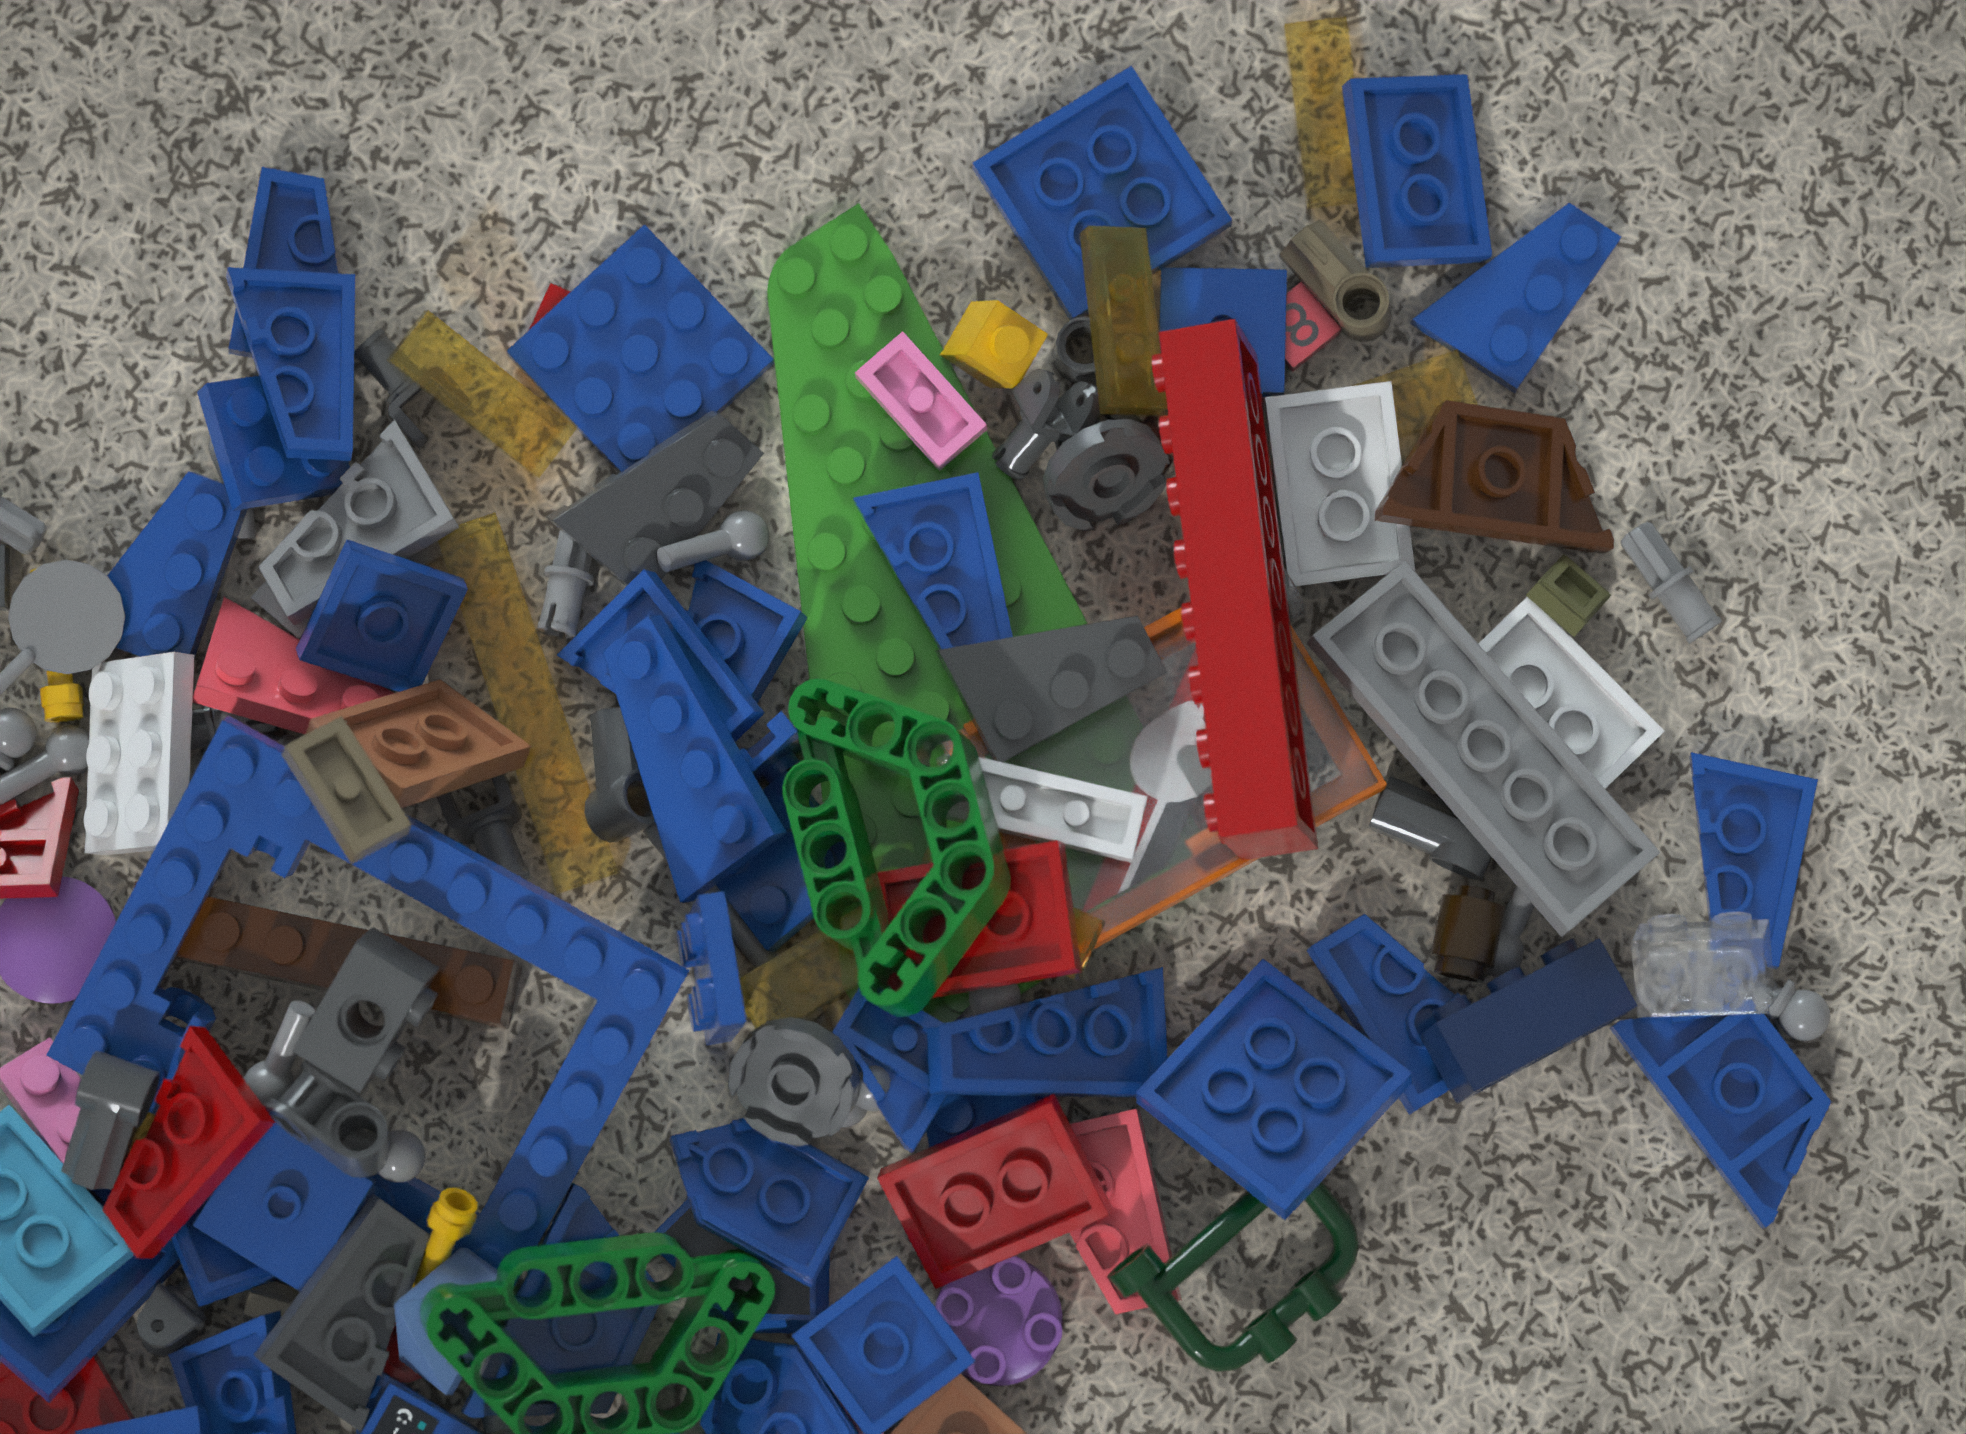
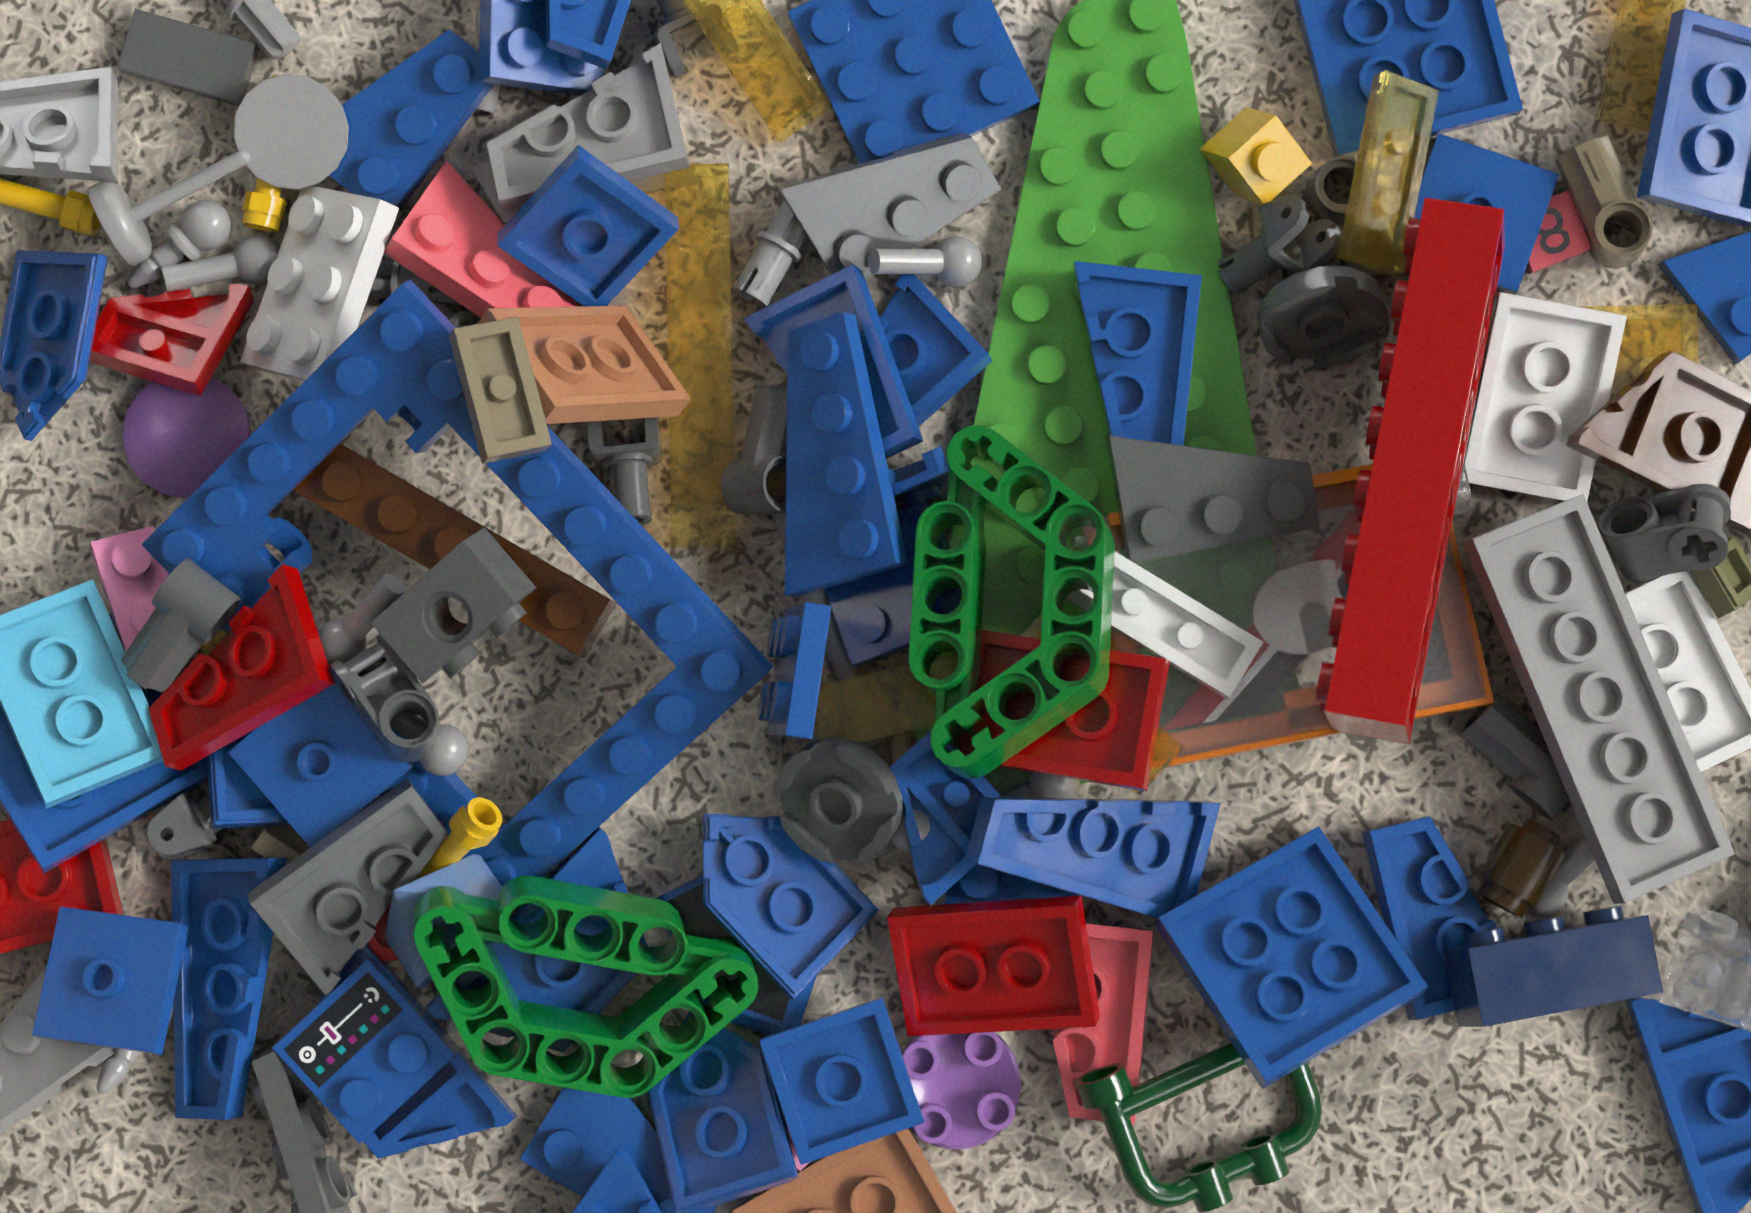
camera: 20 degrees right, 5 degrees up
(921, 401) = (1168, 188): bright pink plate -> none
(1493, 577) = (1662, 535): none -> dark grey piece

